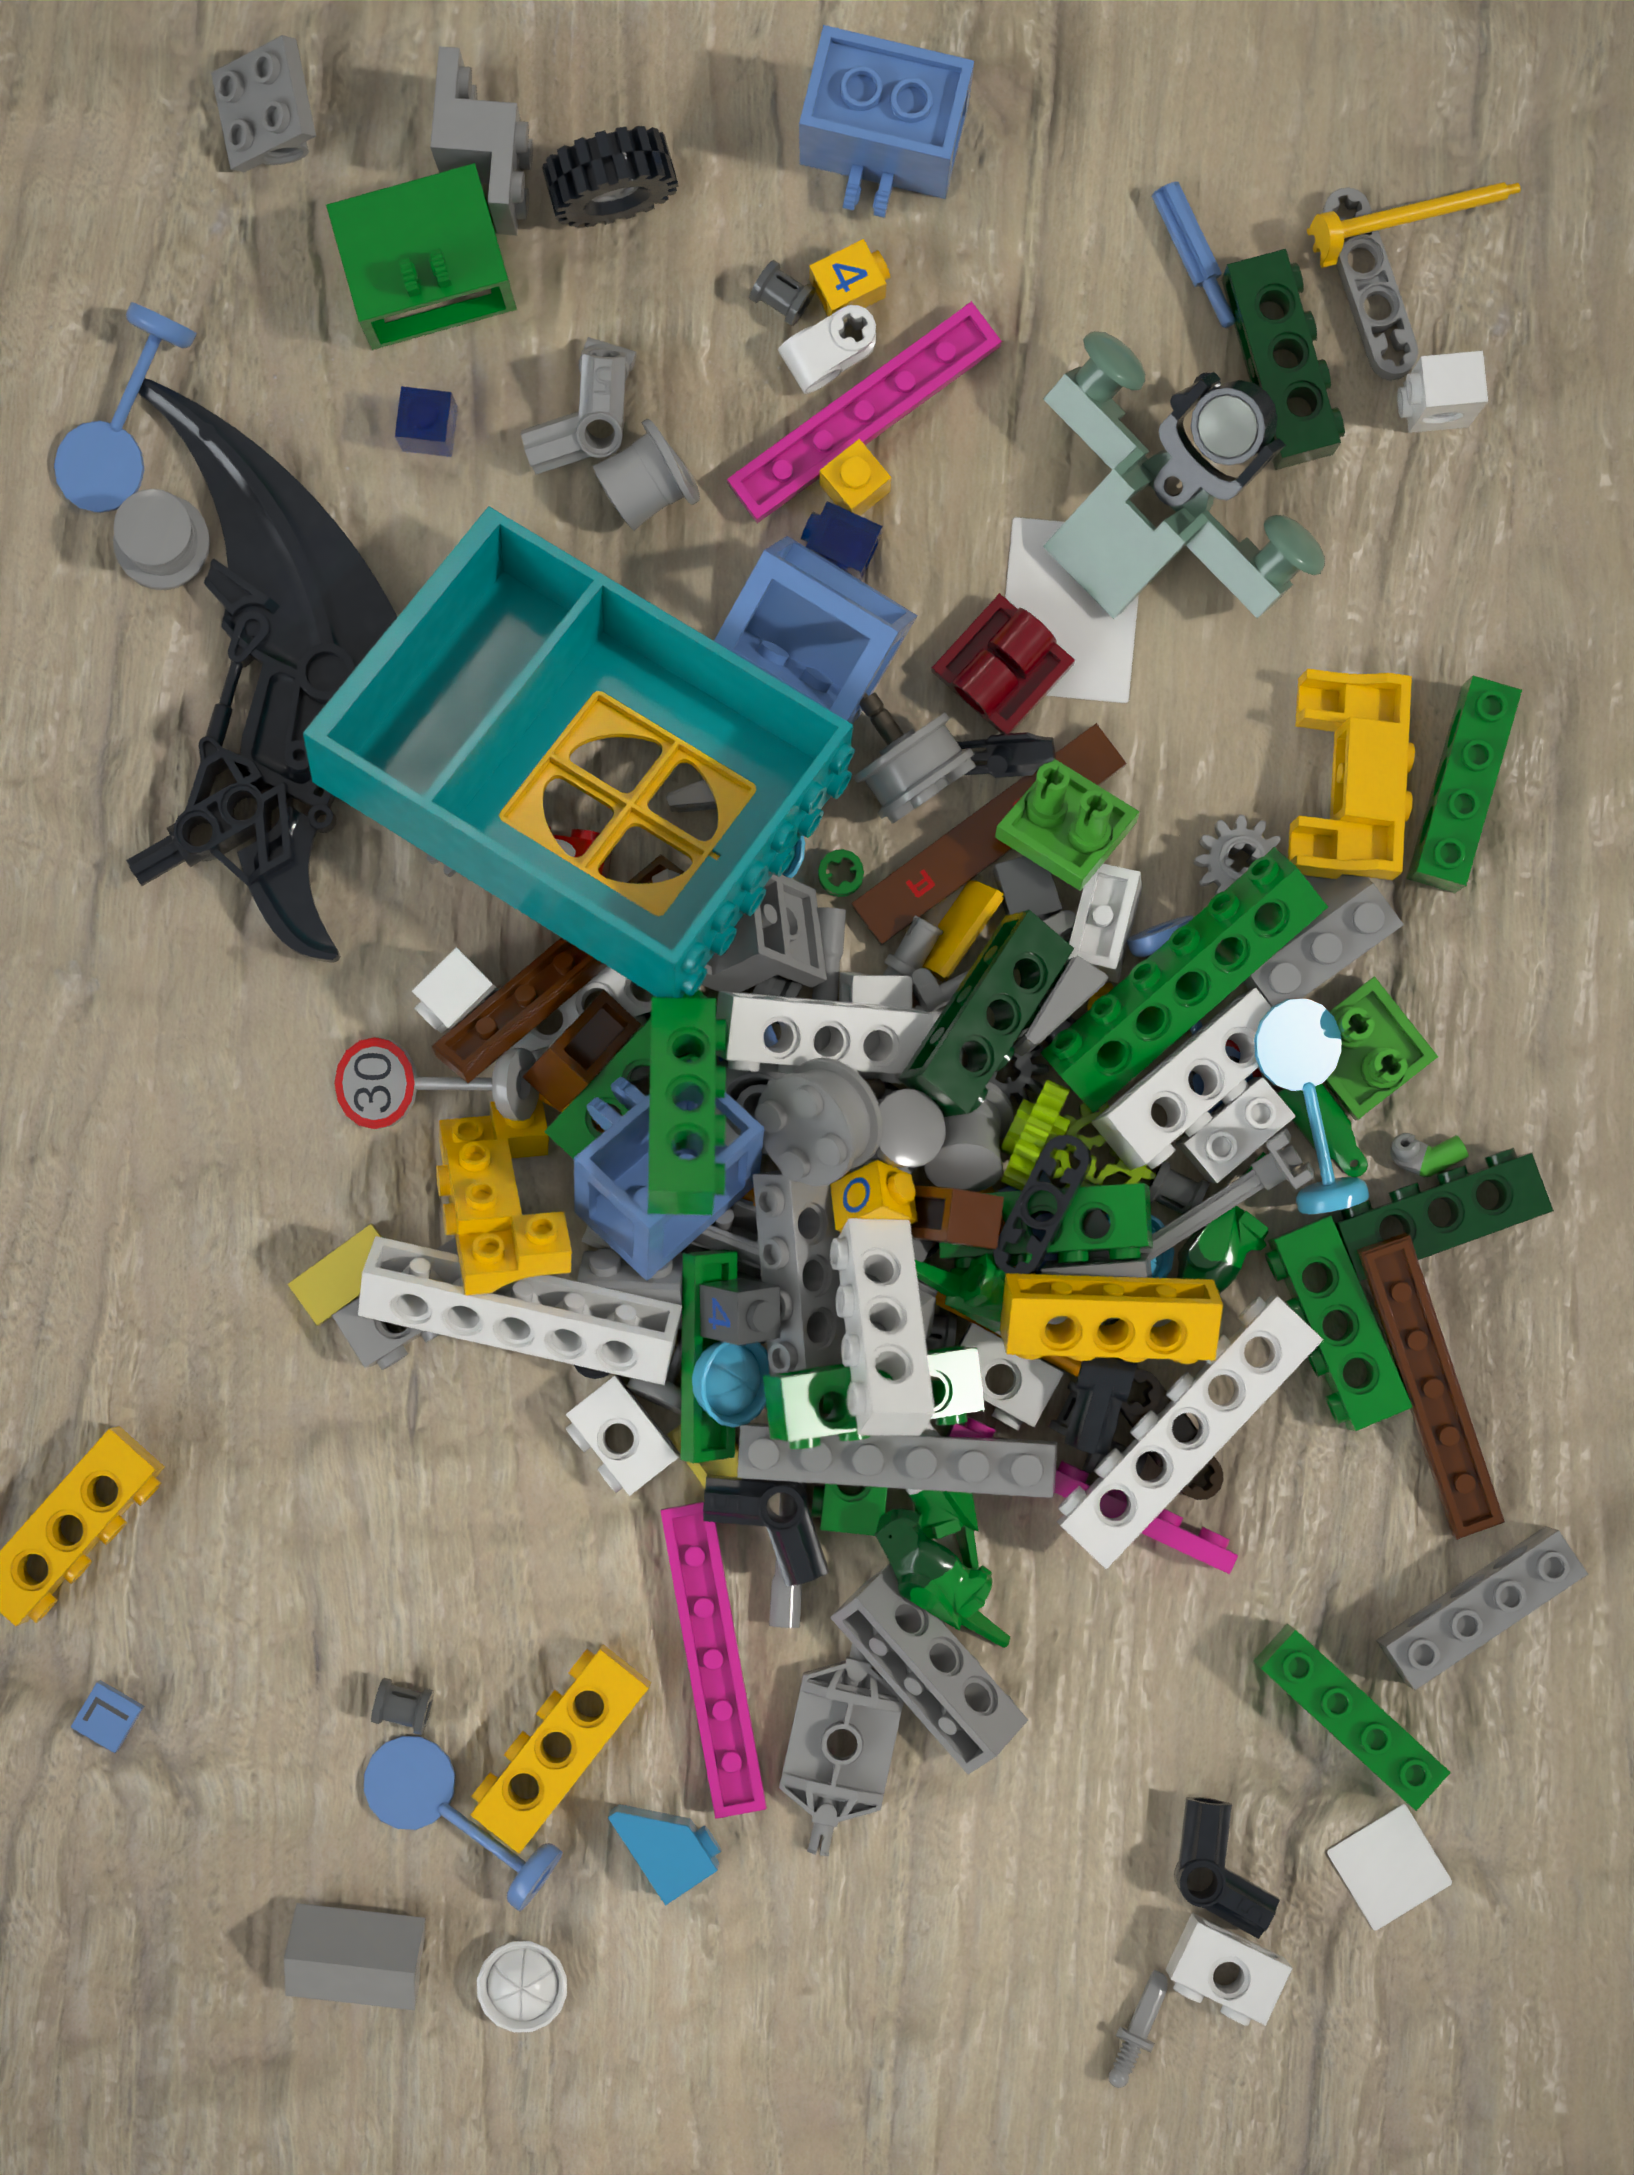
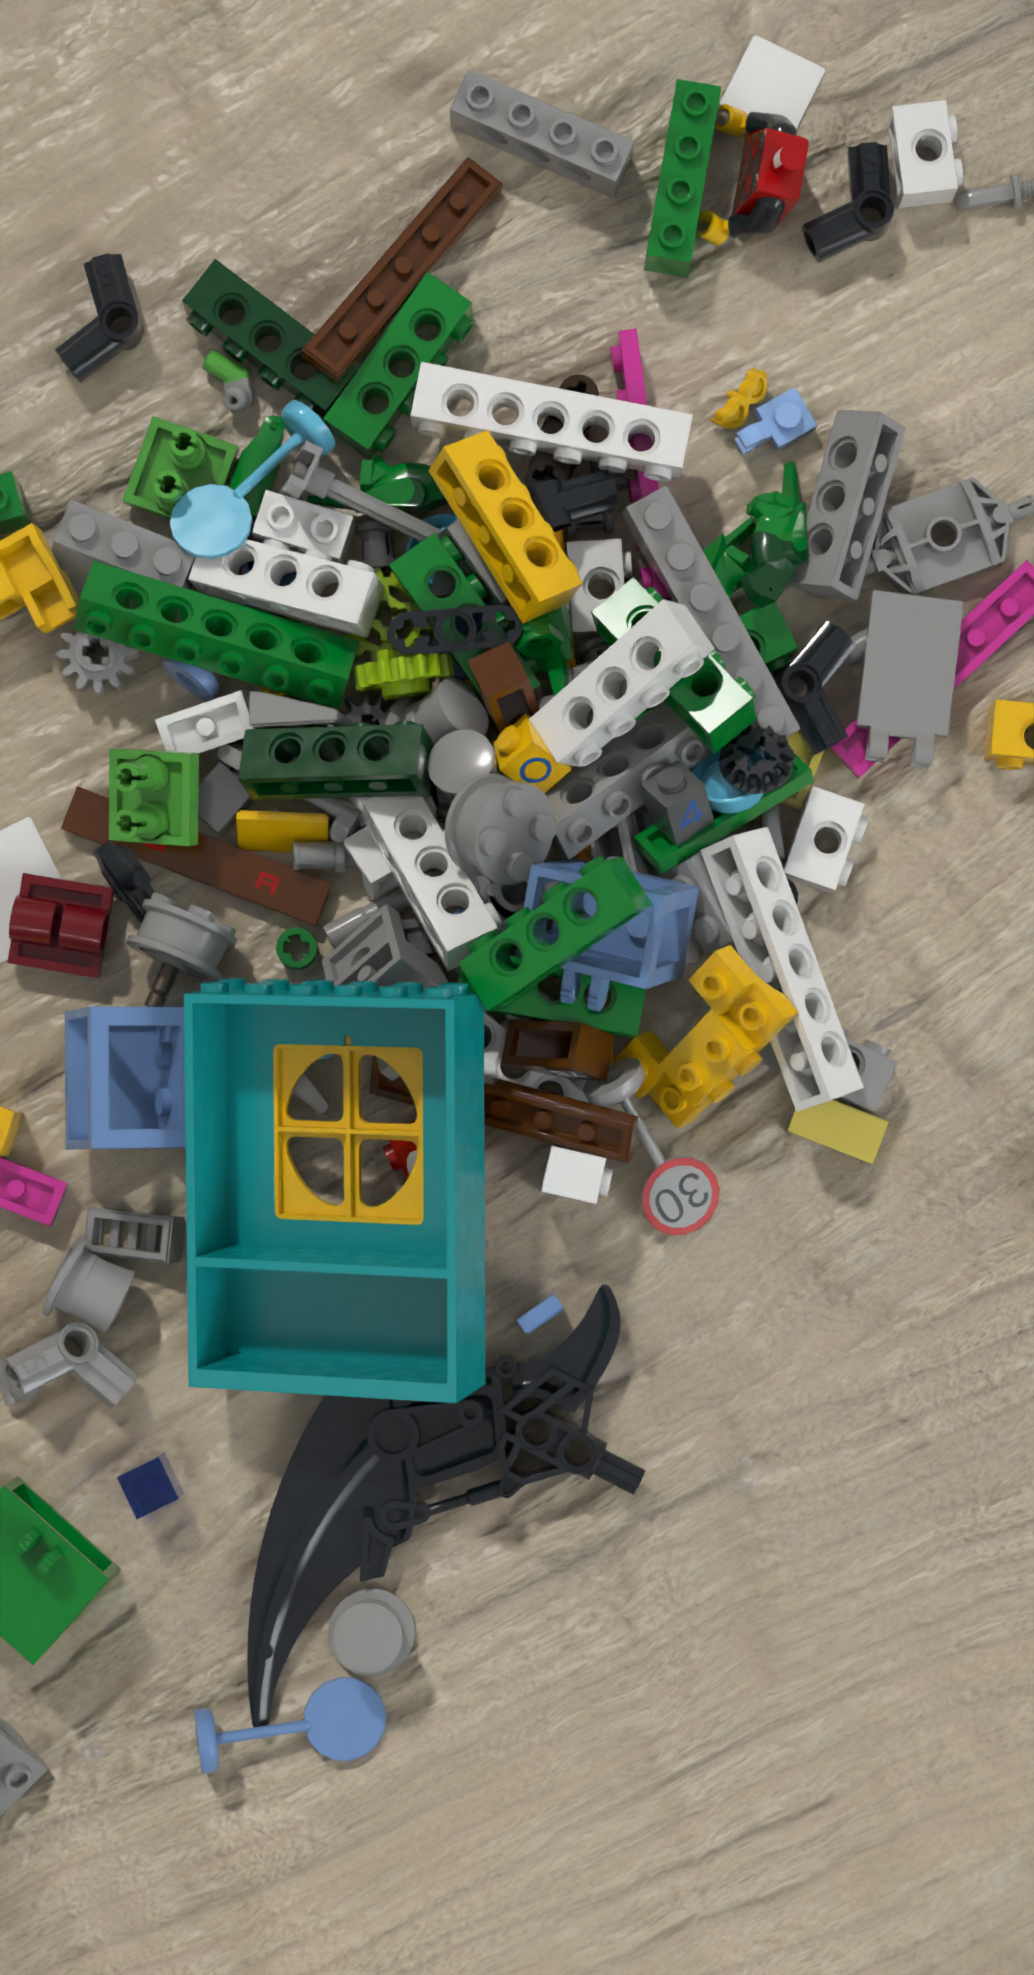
camera: 125 degrees left, 0 degrees up
(350, 881) = (540, 1313): none -> medium blue tile
(644, 585) = (171, 1235): none -> light grey slope
(710, 1411) = (766, 774): none -> black gear
(728, 1621) = (908, 672): none -> light grey tile
(843, 538) = (40, 1108): clear blue brick -> none
(1053, 1660) = (780, 421): none -> light blue plate
(1093, 1625) = (737, 407): none -> yellow piece
(1300, 1800) = (767, 176): none -> torso
(1578, 1091) = (113, 299): none -> black piece

